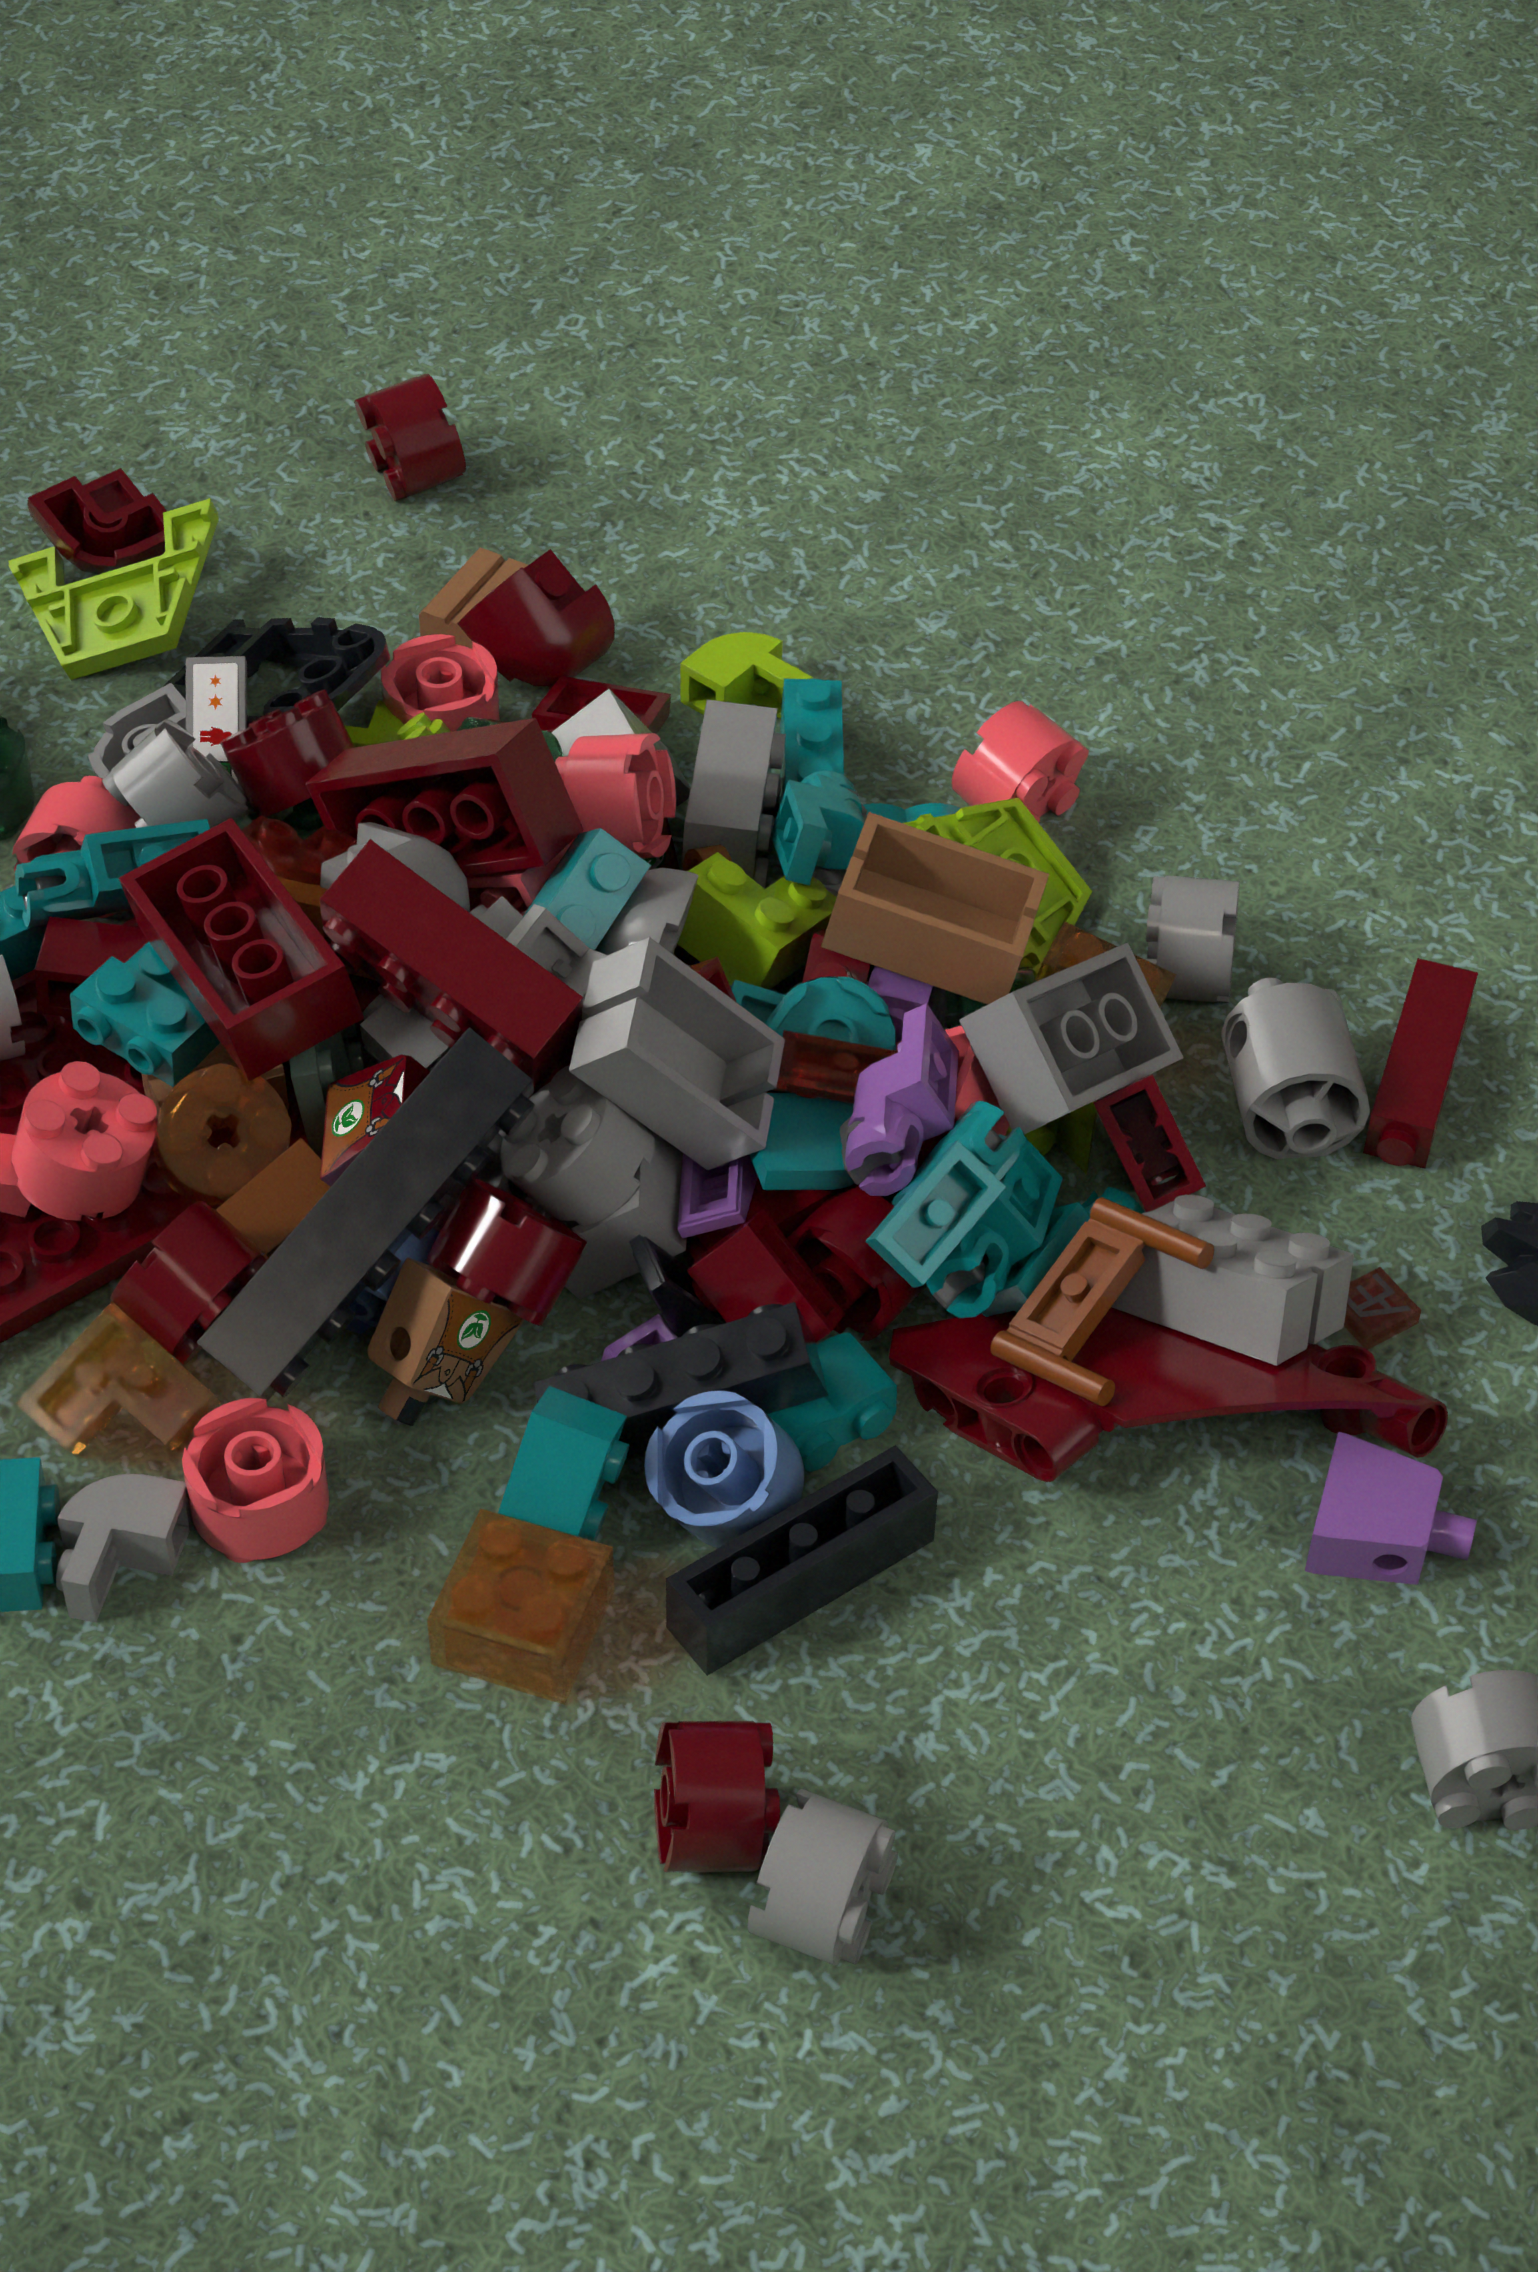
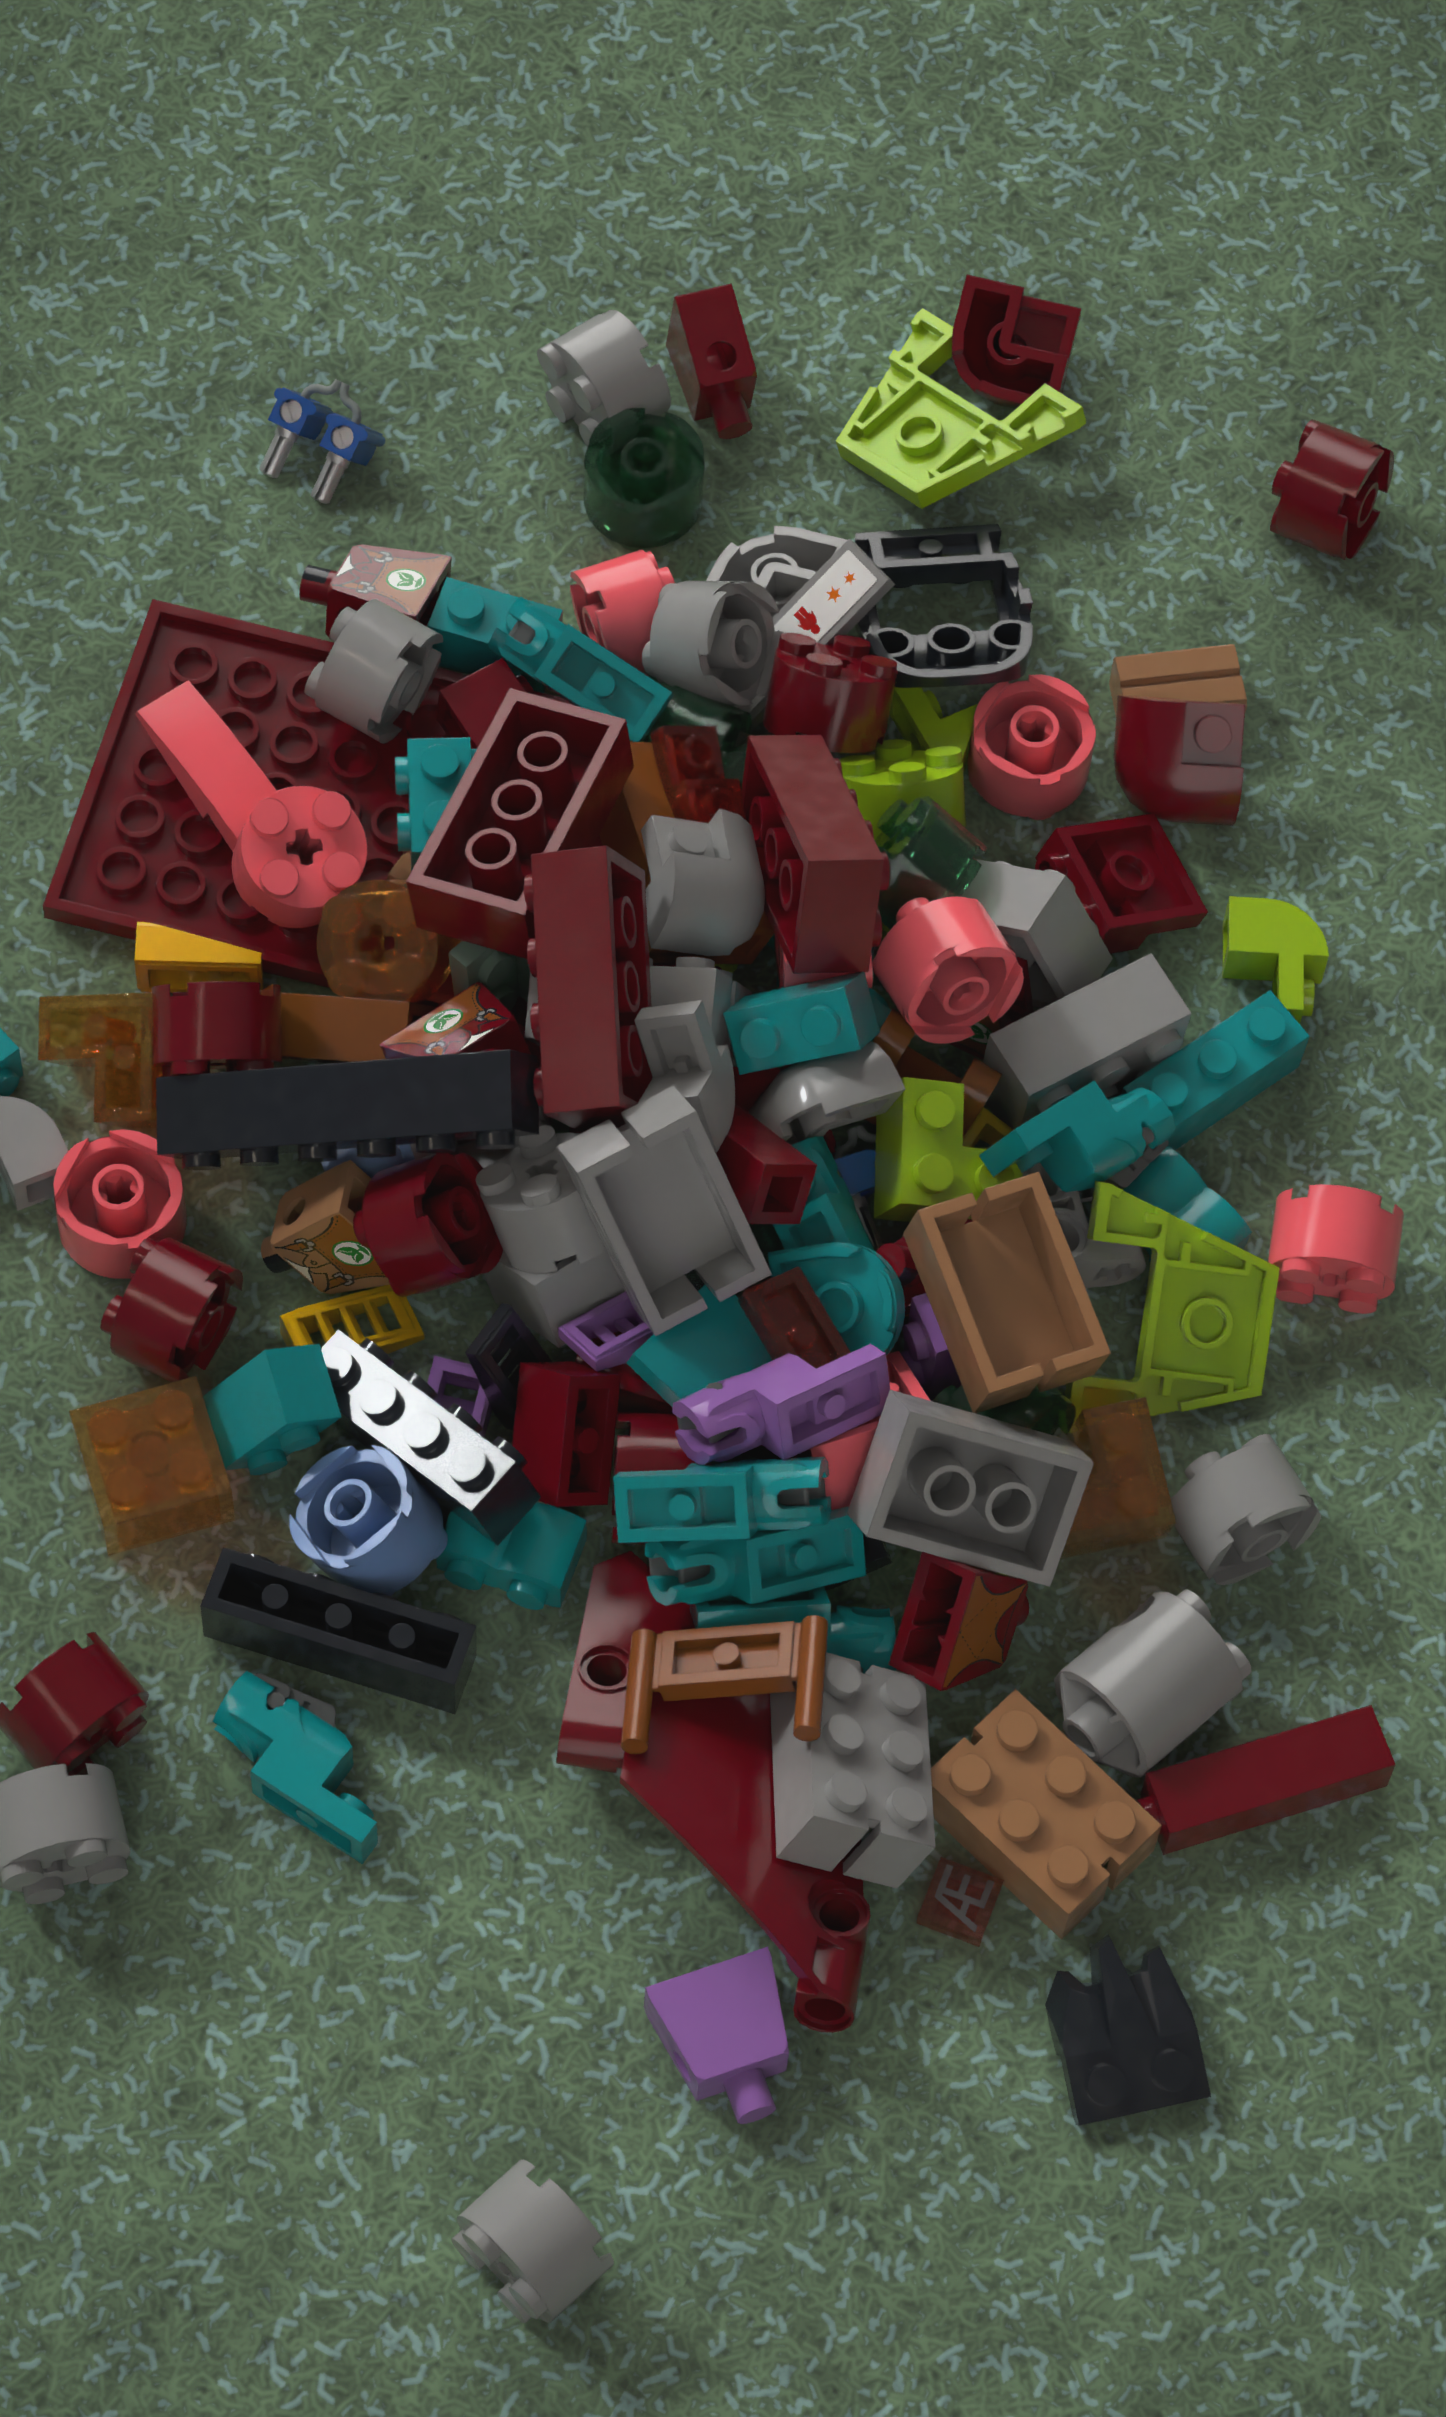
camera: 50 degrees right, 15 degrees up
(60, 1310) = (180, 957): none -> yellow slope
(398, 1493) = (172, 1309): none -> dark red brick
(502, 1441) = (301, 1322): none -> yellow slope
(897, 1668) = (298, 1759): none -> teal plate
(1360, 1191) = (1040, 1814): none -> medium nougat piece

